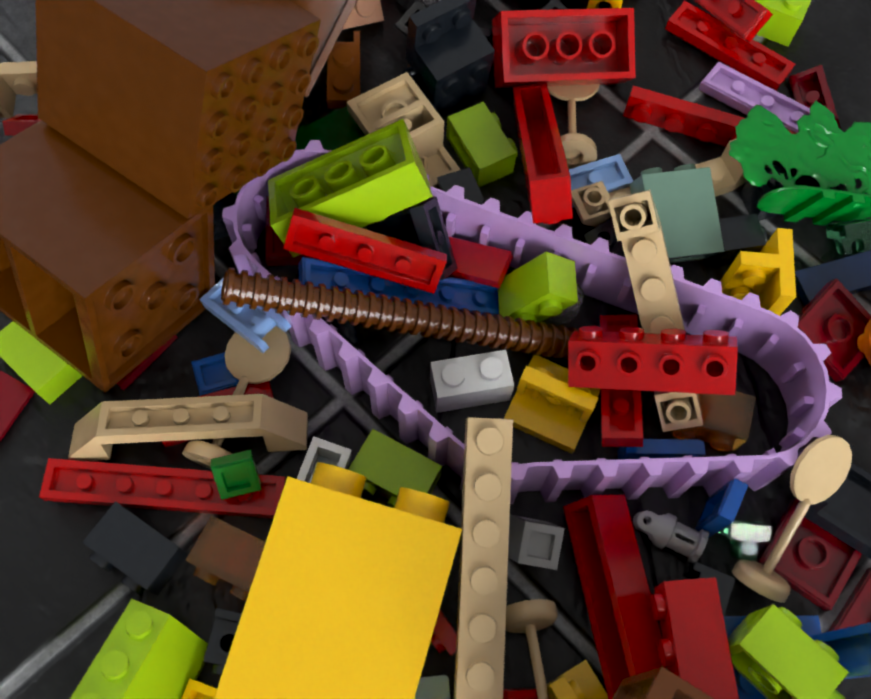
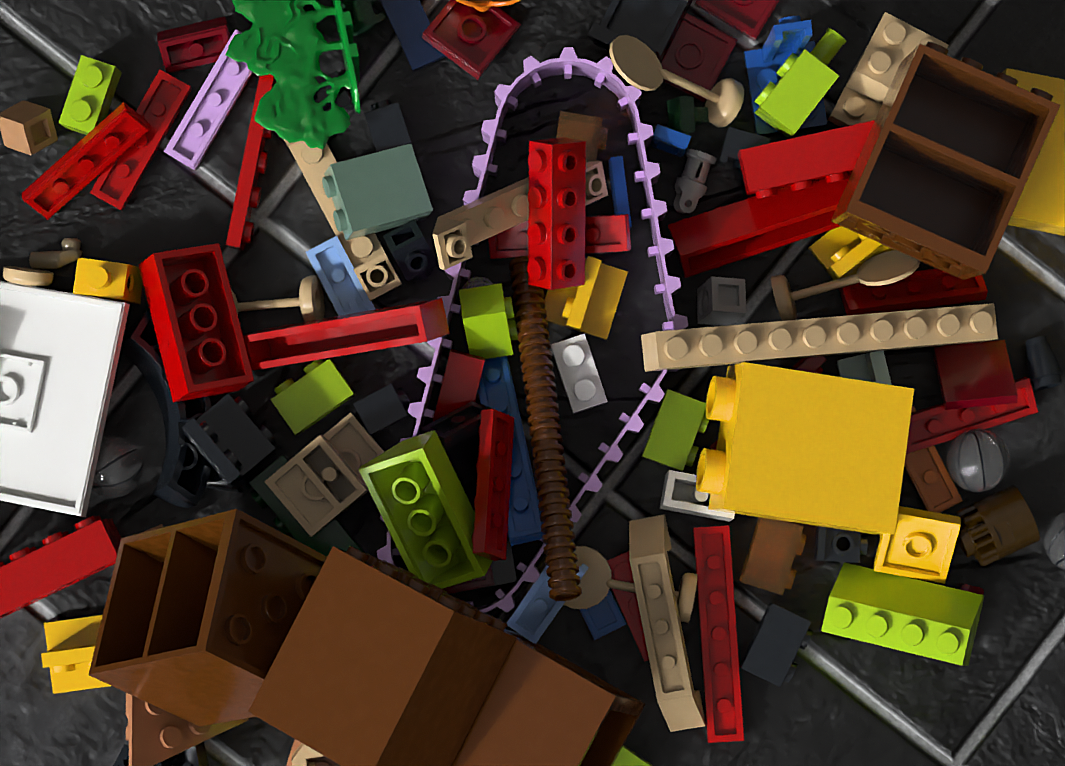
camera: 90 degrees left, 20 degrees up
(235, 474) = (703, 568): green tile -> none
(765, 273) = (437, 100): yellow bracket -> none

